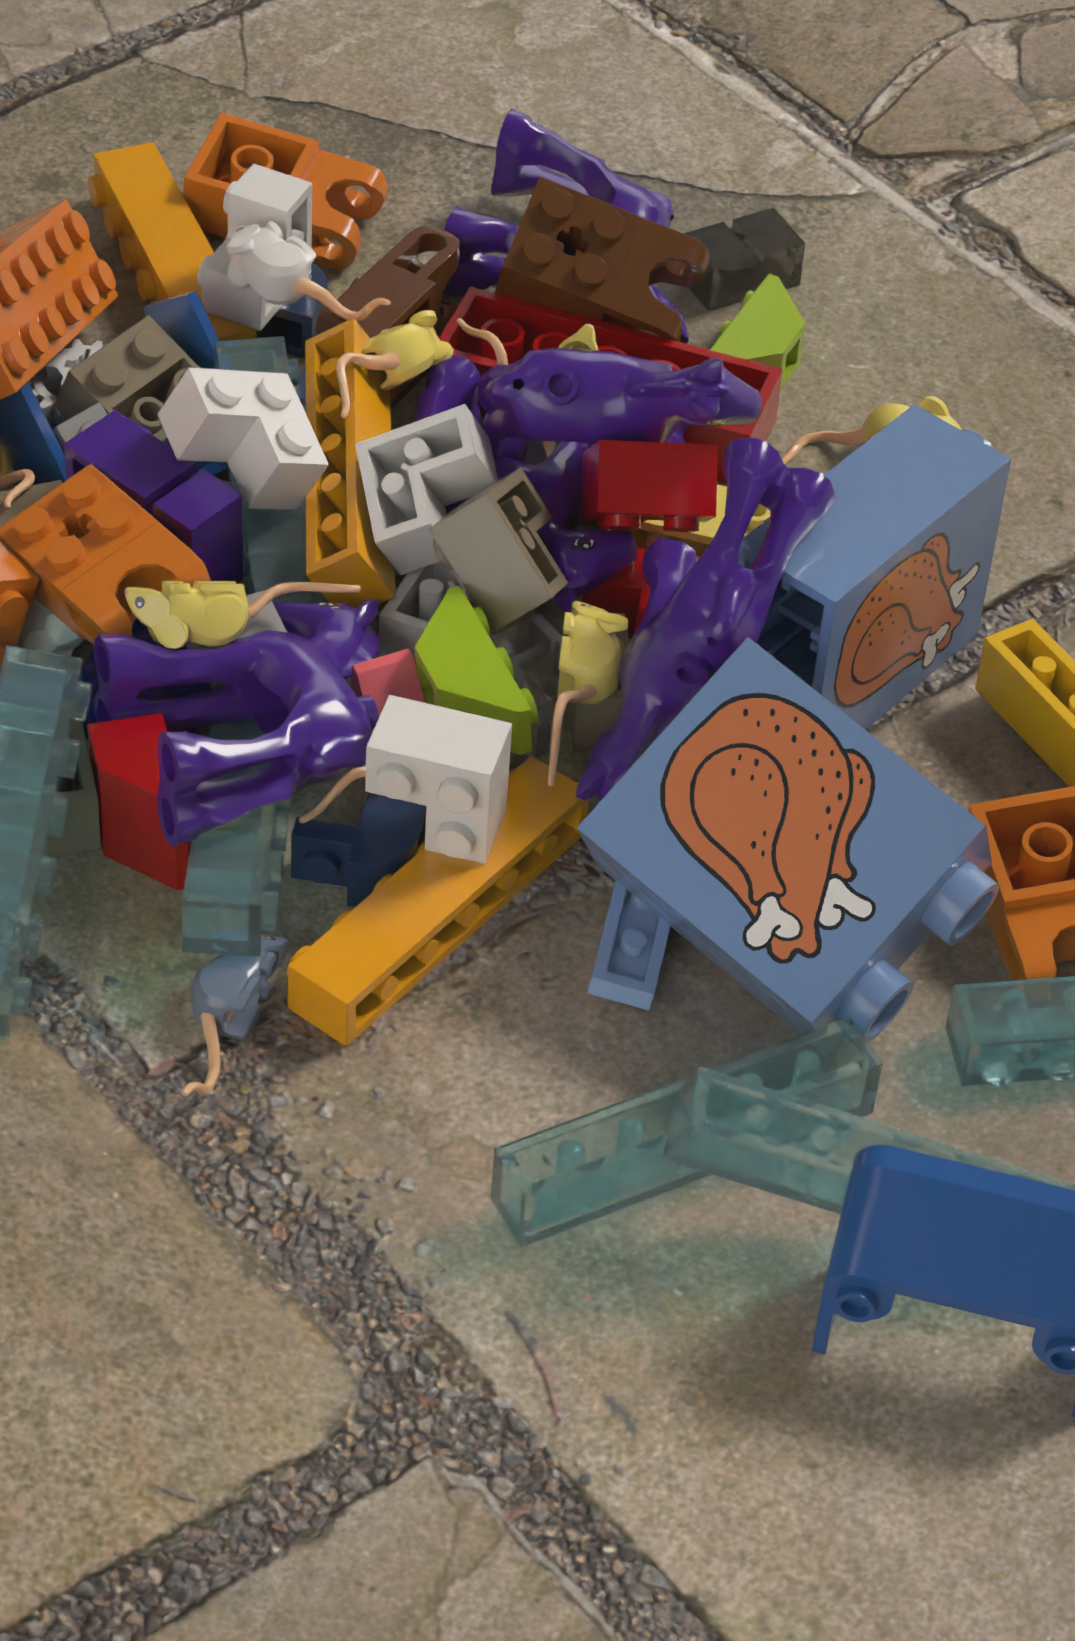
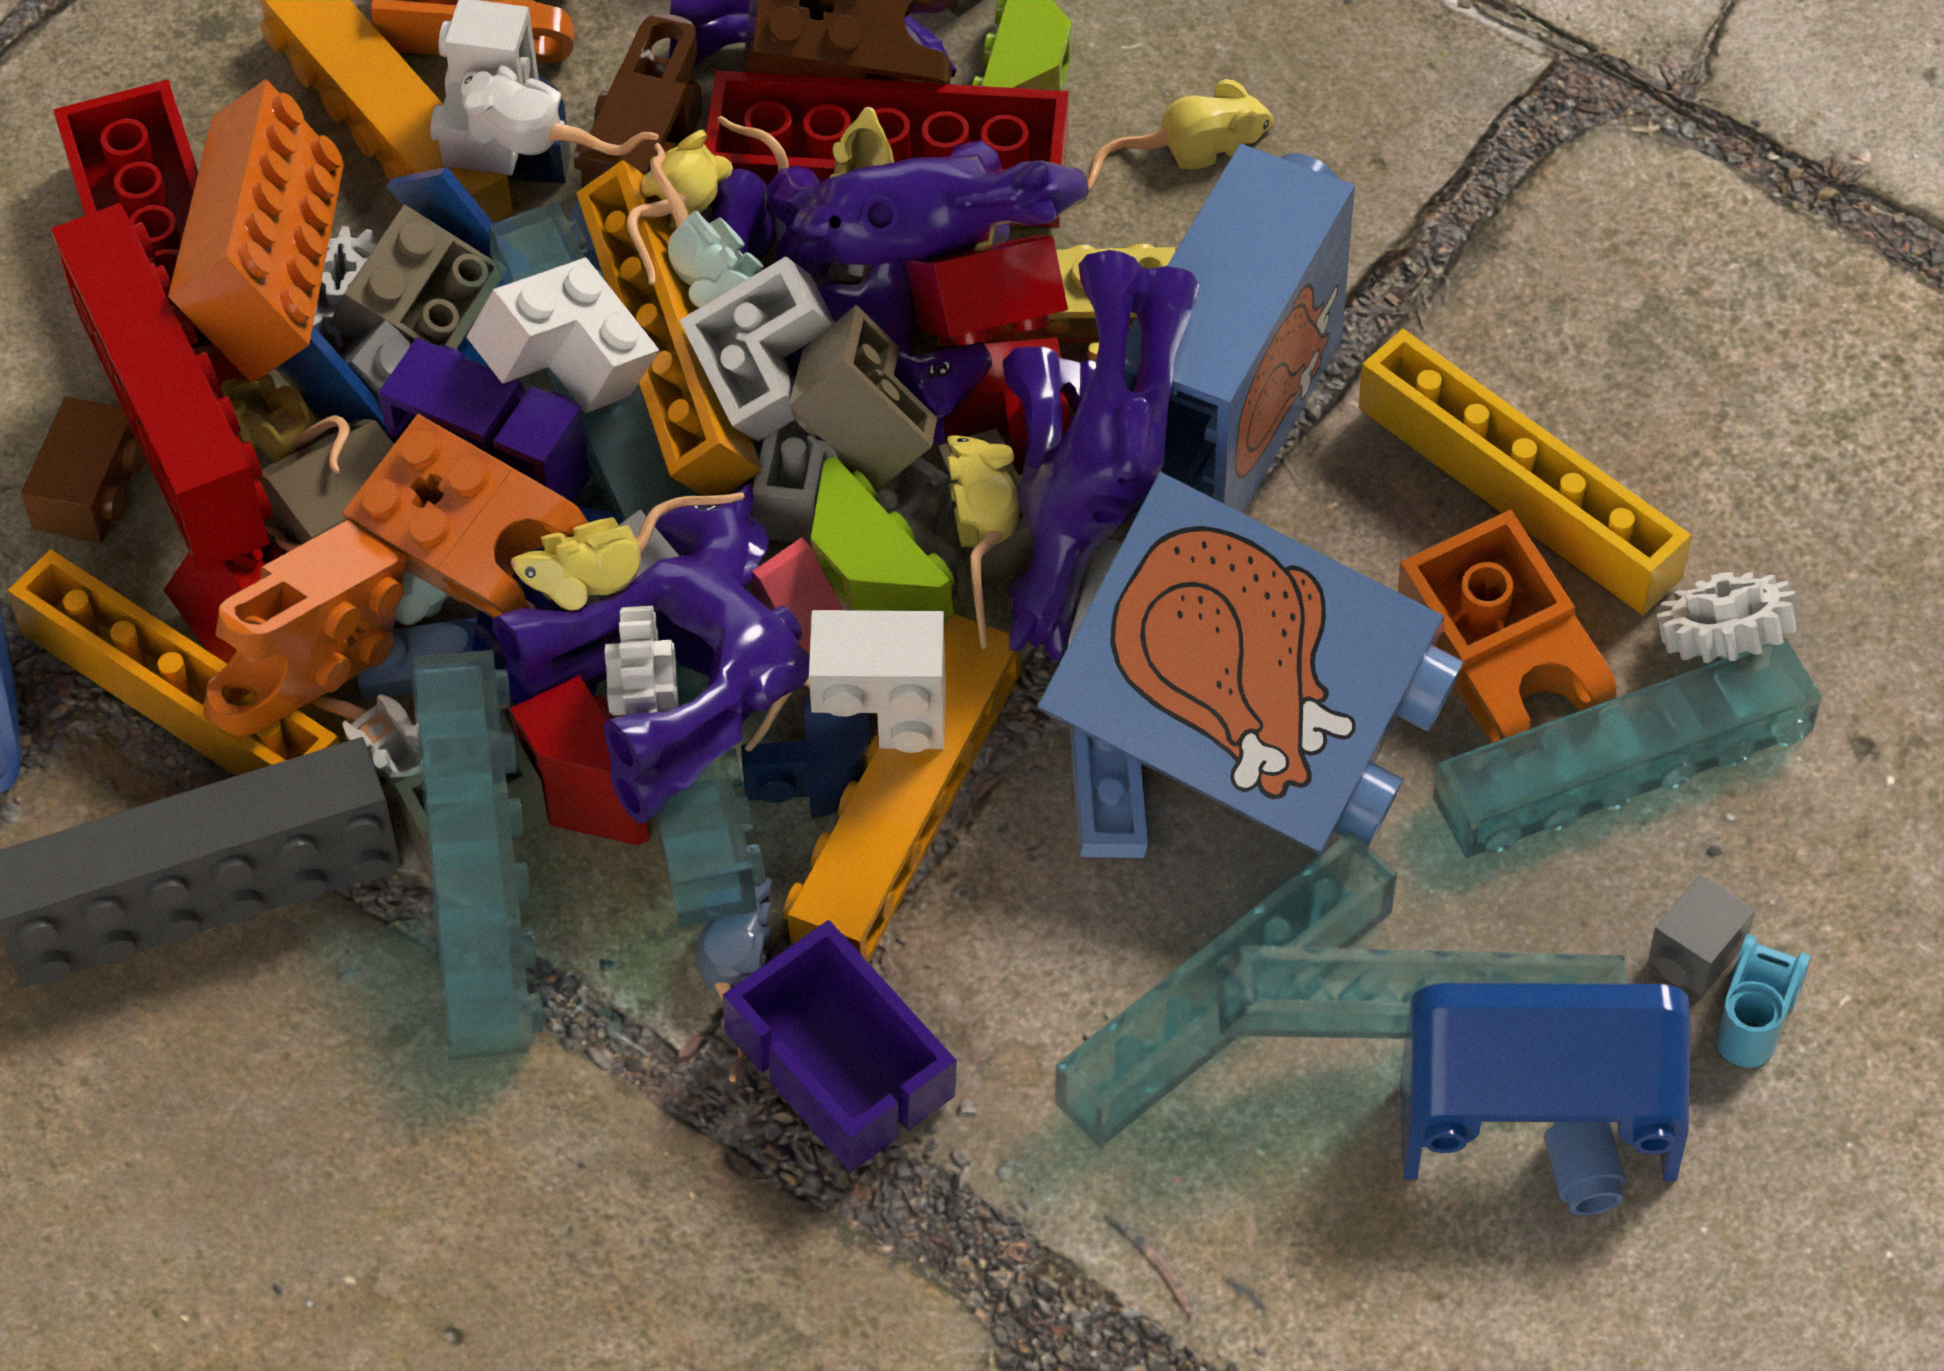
camera: 10 degrees left, 10 degrees up
(216, 701) = (640, 667): none -> white gear
(297, 1089) = (839, 1045): none -> dark purple piece
(394, 397) = (700, 251): none -> light aqua animal
(995, 1374) = (1585, 1166): none -> medium blue brick

